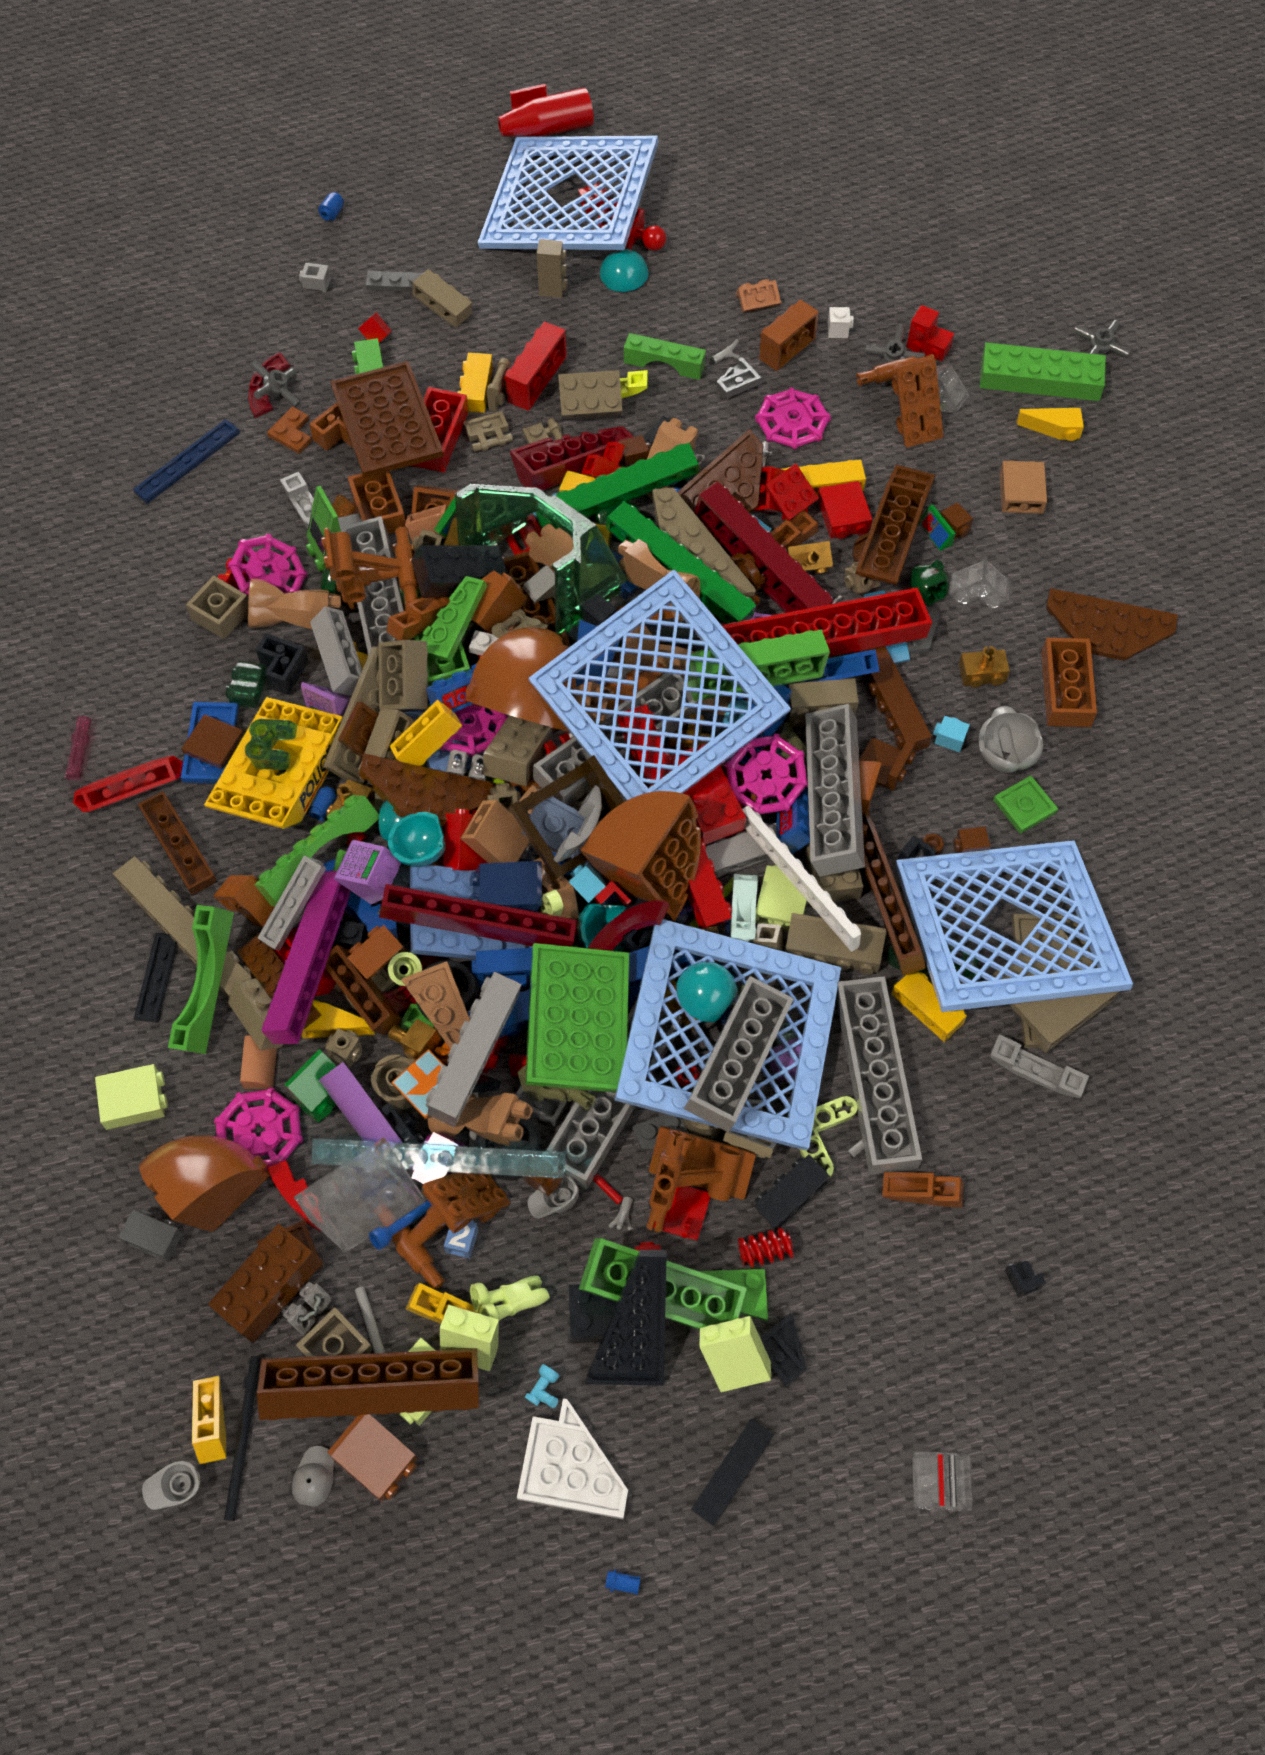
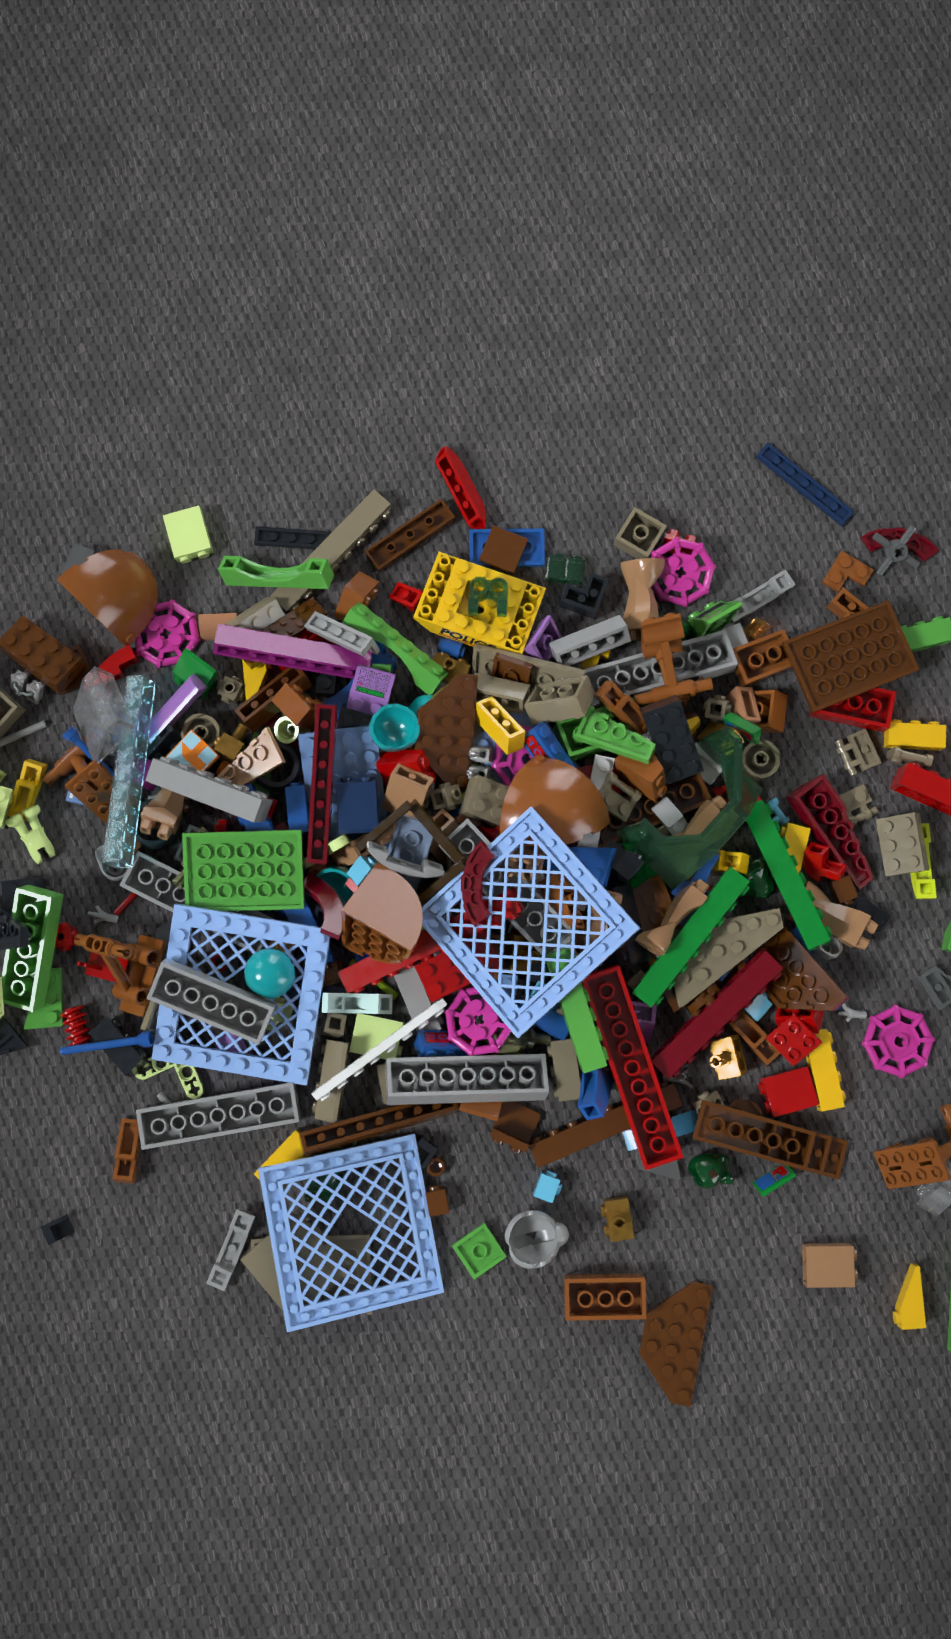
camera: 85 degrees right, 20 degrees up
(79, 741) = (496, 441): clear pink pin -> none
(252, 845) = (406, 596): none -> red slope
(613, 748) = (472, 884): none -> dark red tile
(784, 1151) = (144, 1039): none -> blue piece
(958, 519) = (782, 1198): reddish brown brick -> none
(980, 582) = (705, 1218): clear brick -> none

